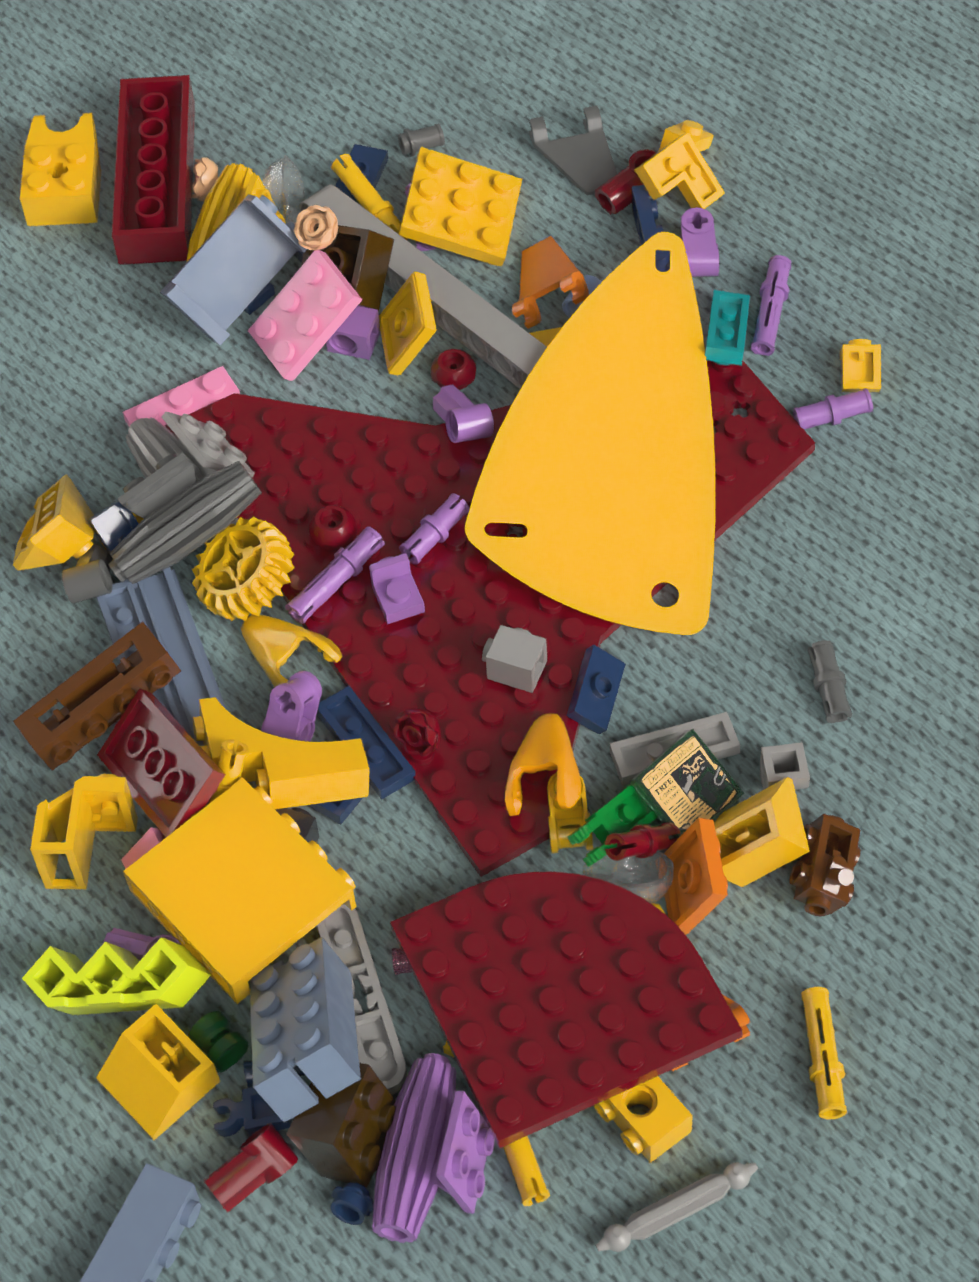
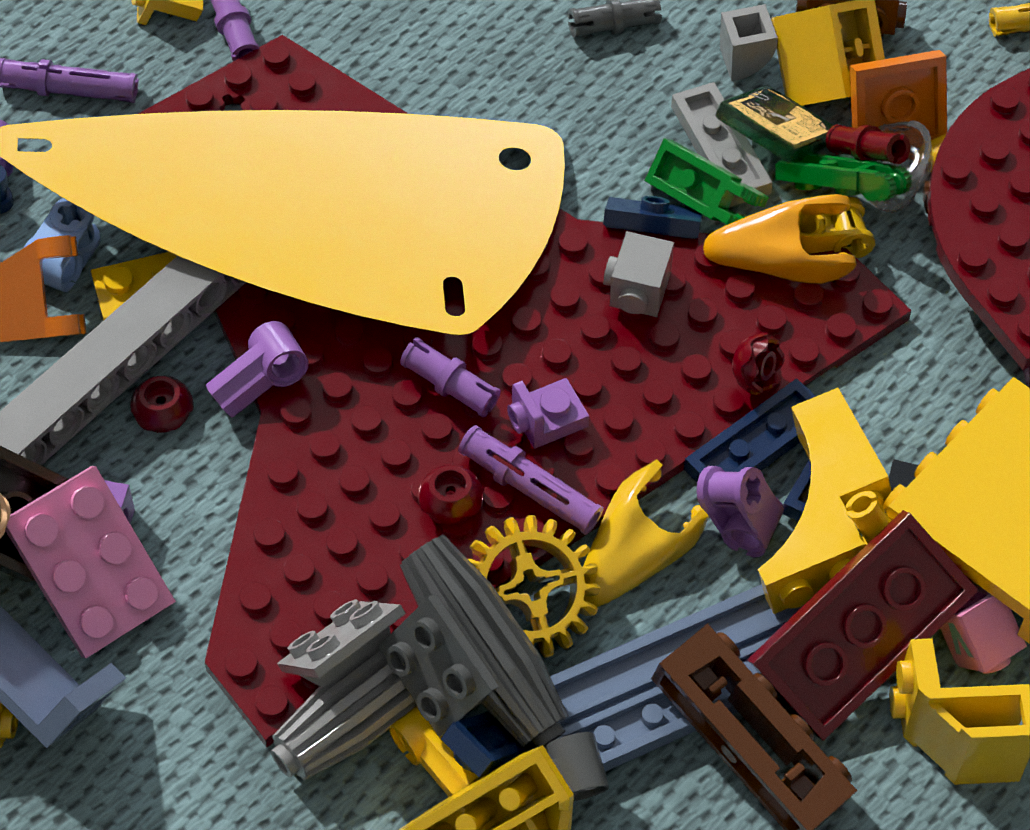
camera: 100 degrees left, 0 degrees up
(186, 397) = (221, 729): bright pink plate -> none
(407, 323) = (104, 431): yellow tile -> none
(614, 723) = (700, 182): none -> green hinge
(727, 328) = (142, 96): teal plate -> none

